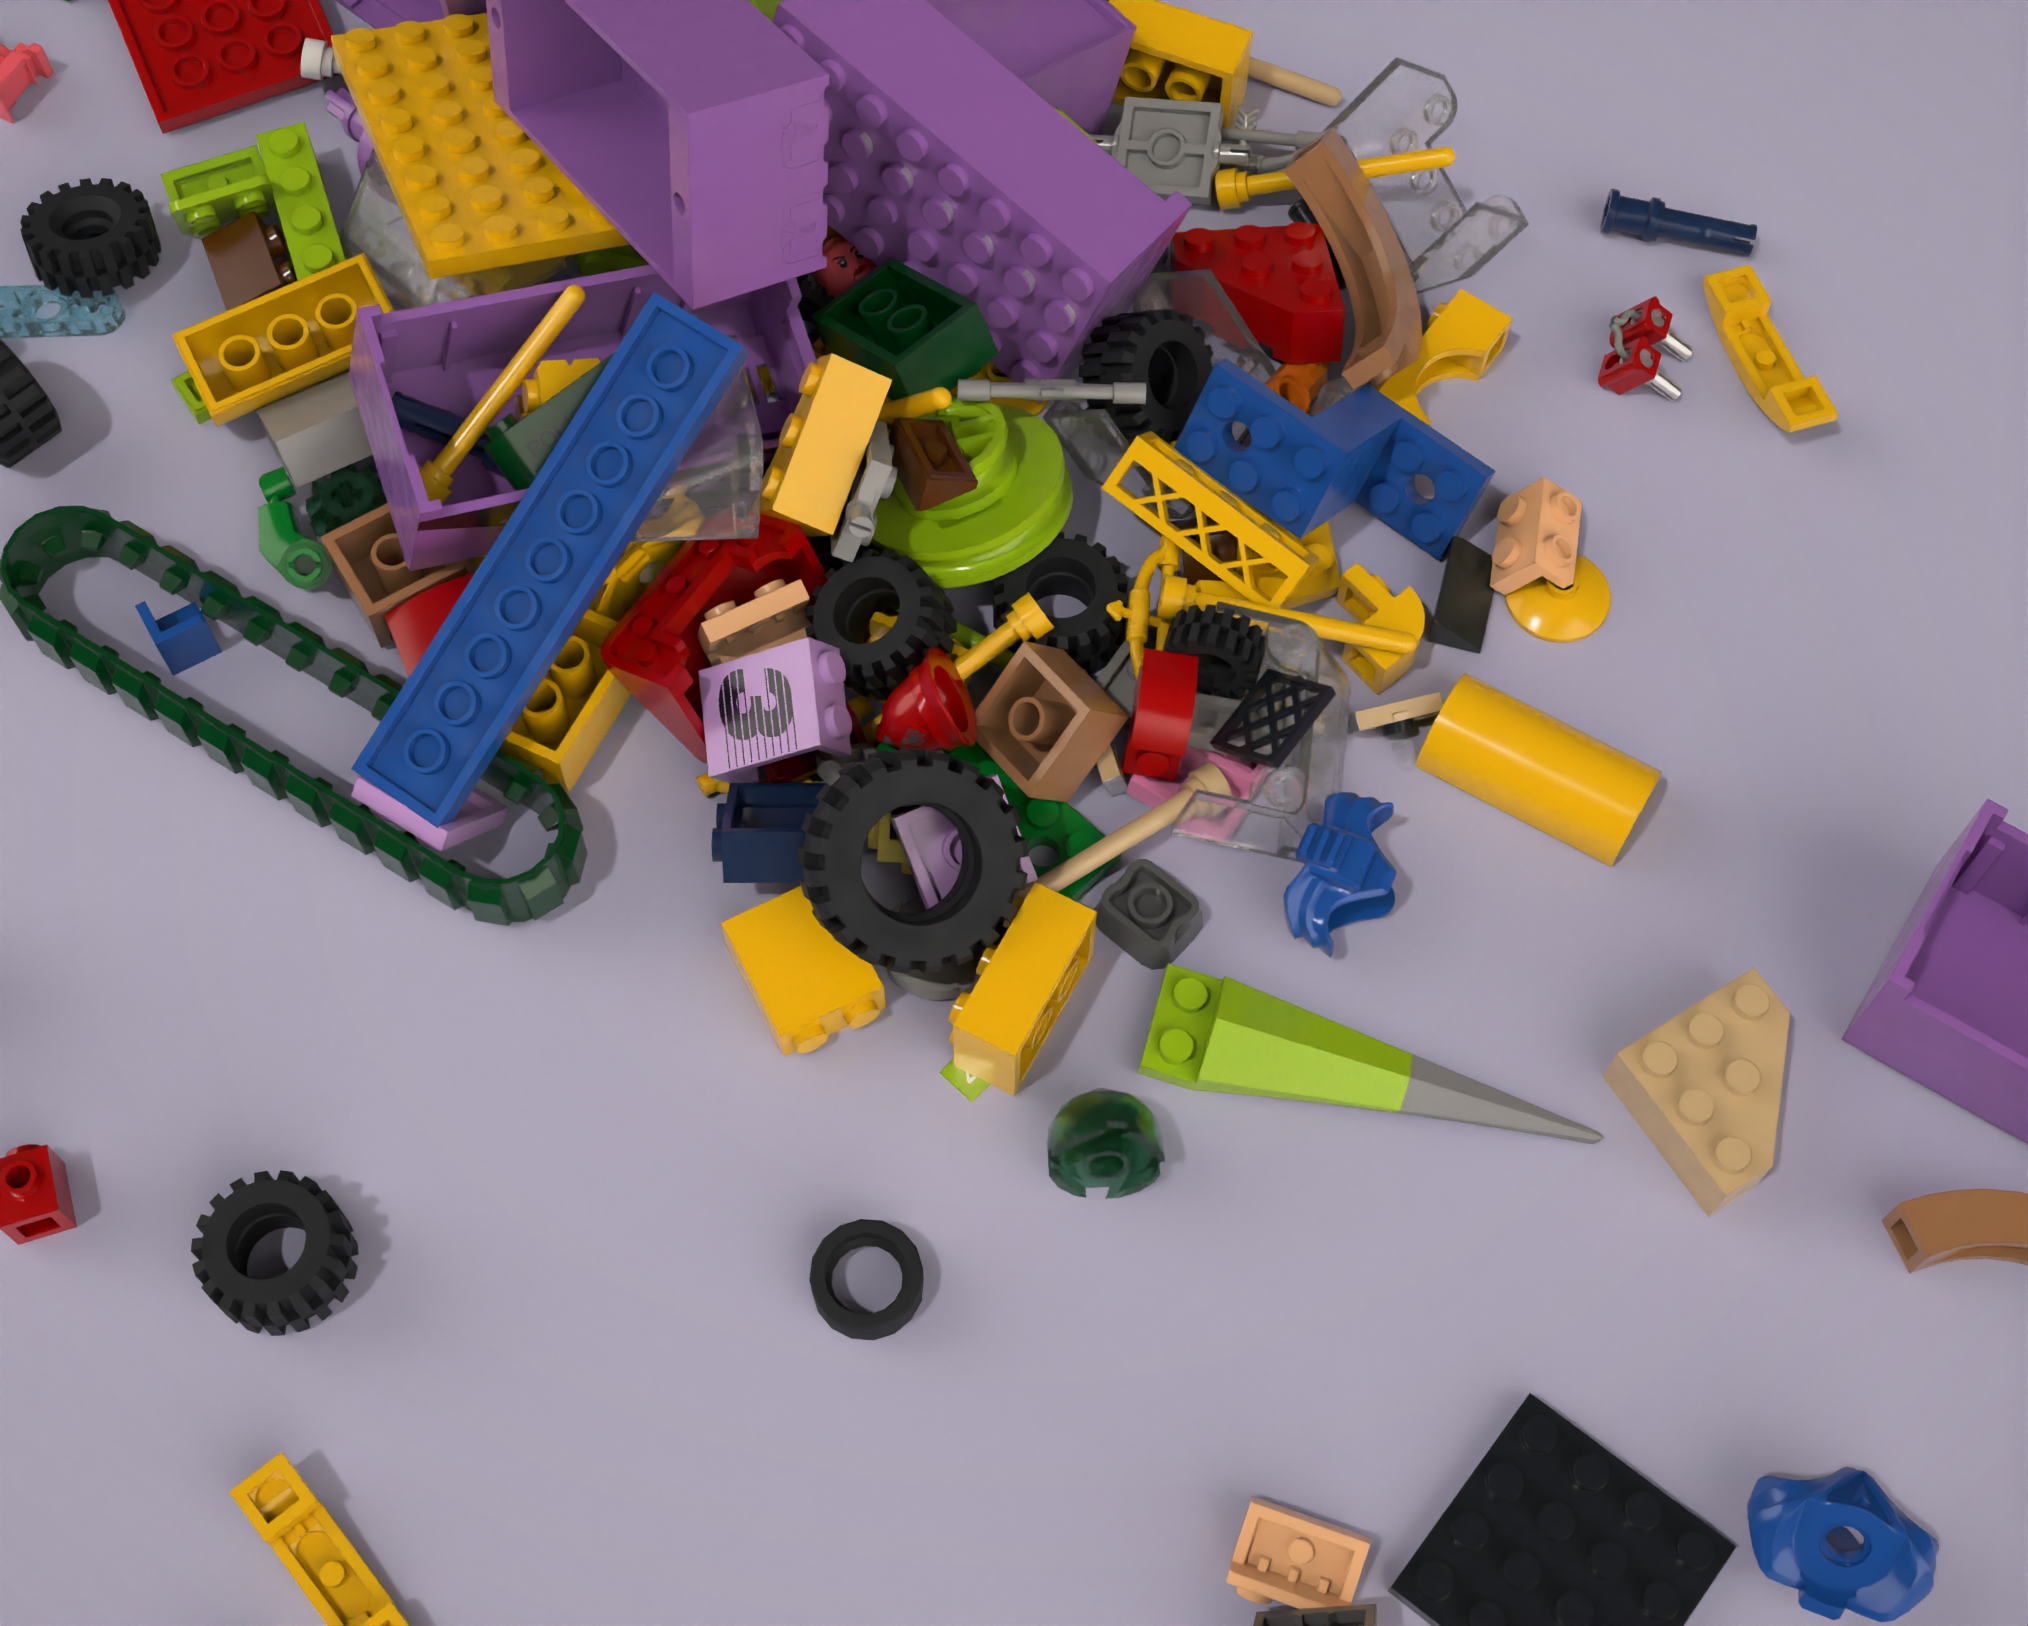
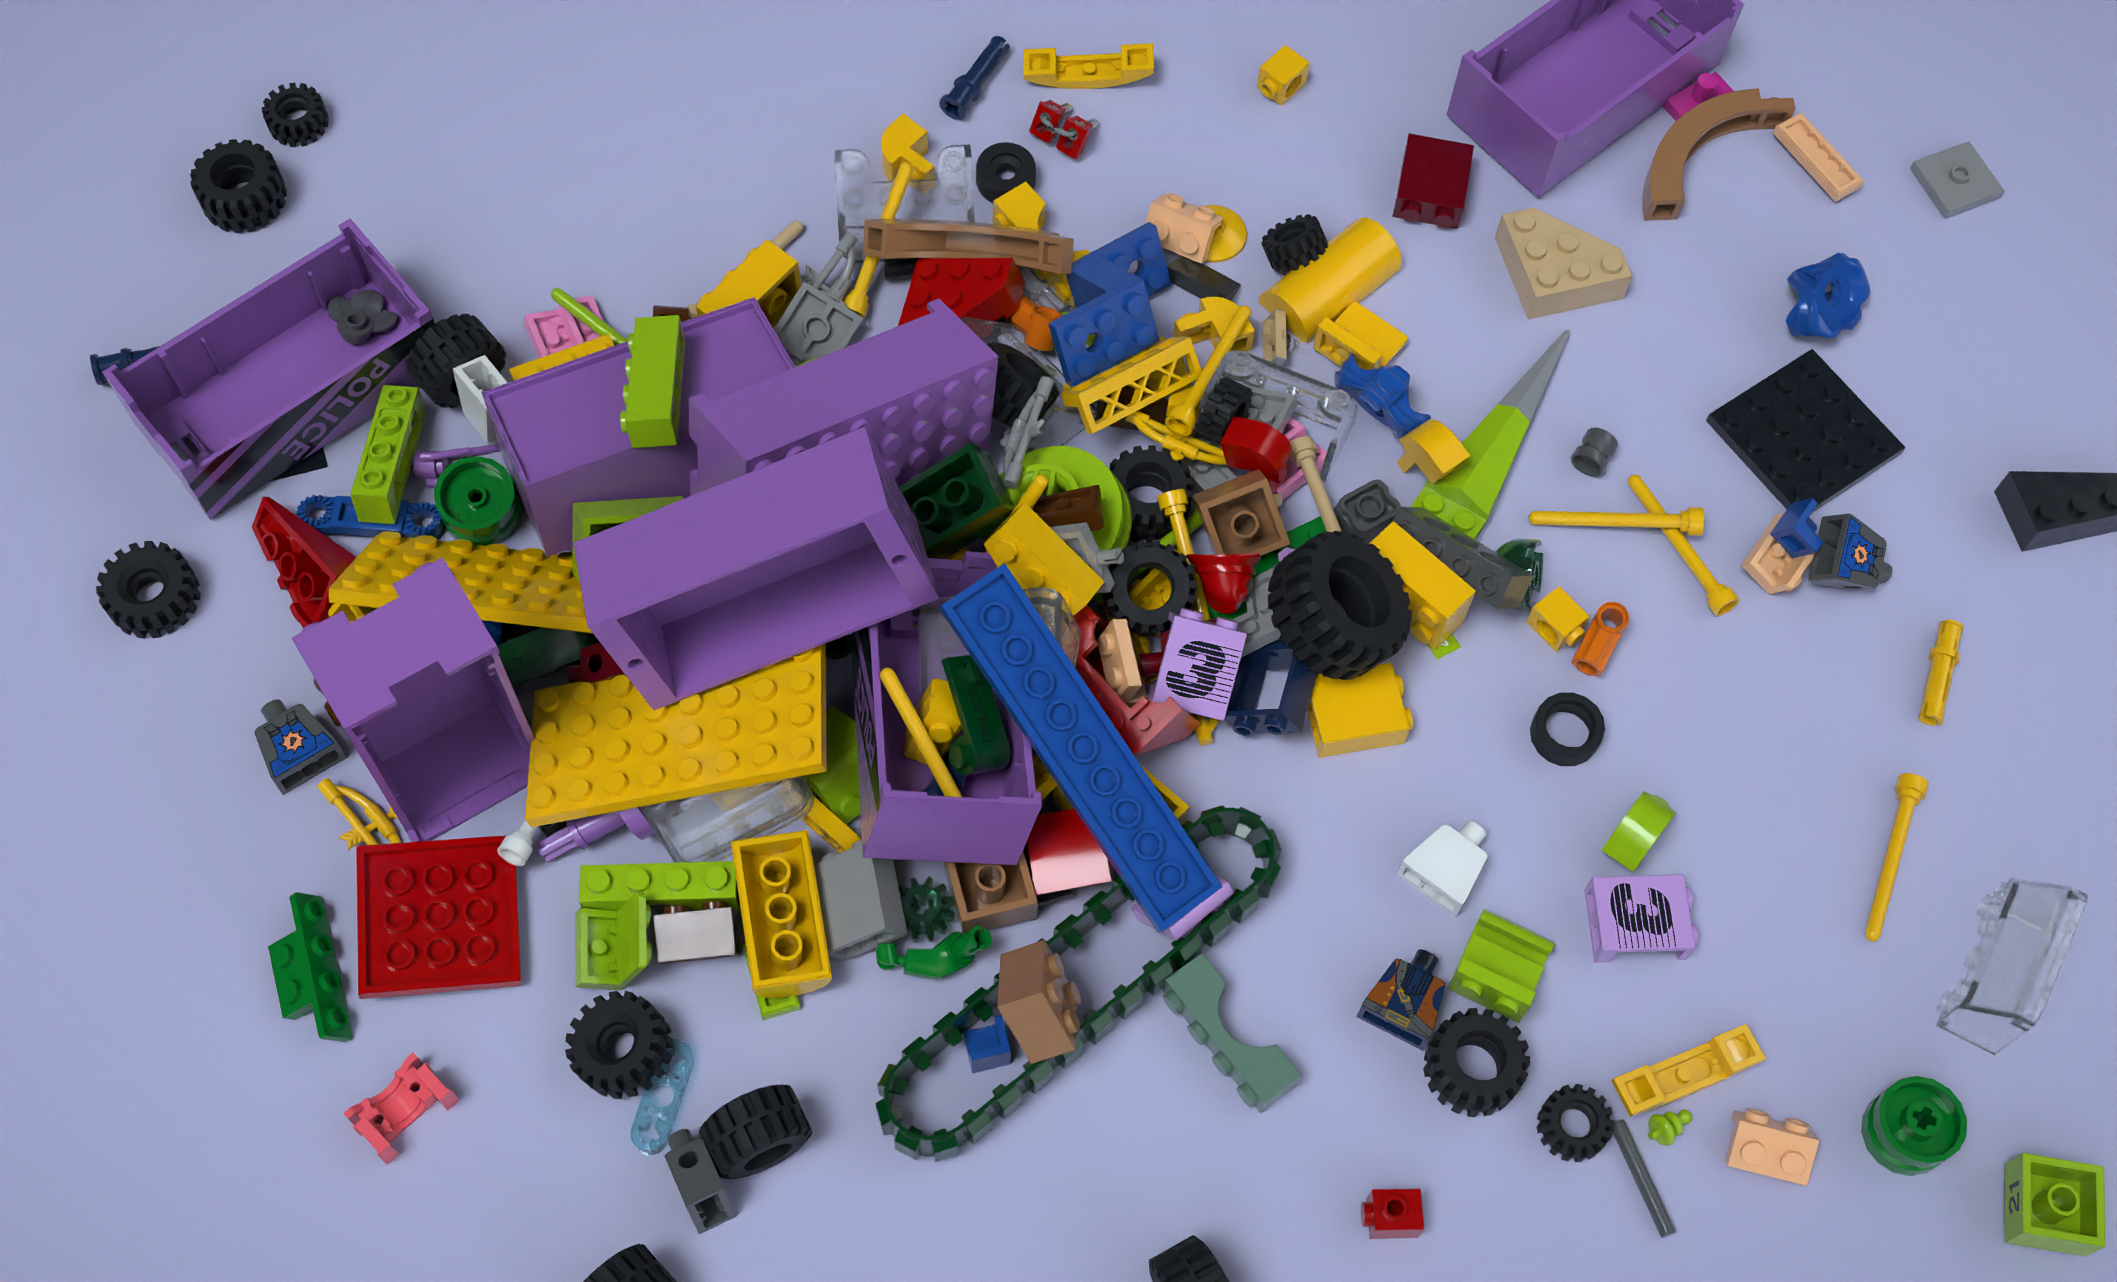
camera: 75 degrees left, 0 degrees up
(152, 1548) = (1643, 1179): none -> dark grey bar
(193, 1397) = (1591, 1106): none -> black tyre
(198, 632) = (1038, 1001): none -> medium nougat brick
(247, 1571) = (1668, 1126): none -> lime hair
(300, 865) = (1260, 1072): none -> sand green arch
(359, 1138) = (1406, 1000): none -> torso
(436, 1259) = (1501, 966): none -> lime piece
(568, 1454) = (1640, 915): none -> lavender panel
(585, 1150) = (1446, 865): none -> white torso
(721, 1419) = (1639, 830): none -> lime brick
(1031, 1296) = (1600, 639): none -> orange piece
(1051, 1224) = (1558, 619): none -> yellow brick
(1085, 1036) = (1486, 571): none -> dark grey brick
(1183, 1476) = (1720, 598): none -> yellow piece
(1253, 702) = (1304, 375): black window -> none
(1264, 958) = (1433, 450): none -> yellow brick
(1299, 1391) = (1687, 520): none -> yellow piece
(1342, 1570) = (1796, 530): none -> blue panel
(1382, 1219) = (1593, 453): none -> dark grey wheel
(1444, 831) = (1360, 333): none -> yellow bracket
(1506, 166) = (902, 143): none -> yellow brick
(1541, 281) = (999, 157): none -> black tyre
(1569, 690) = (1294, 243): none -> black tyre
(1787, 867) = (1433, 181): none -> dark red brick
(1881, 608) = (1283, 75): none -> yellow brick

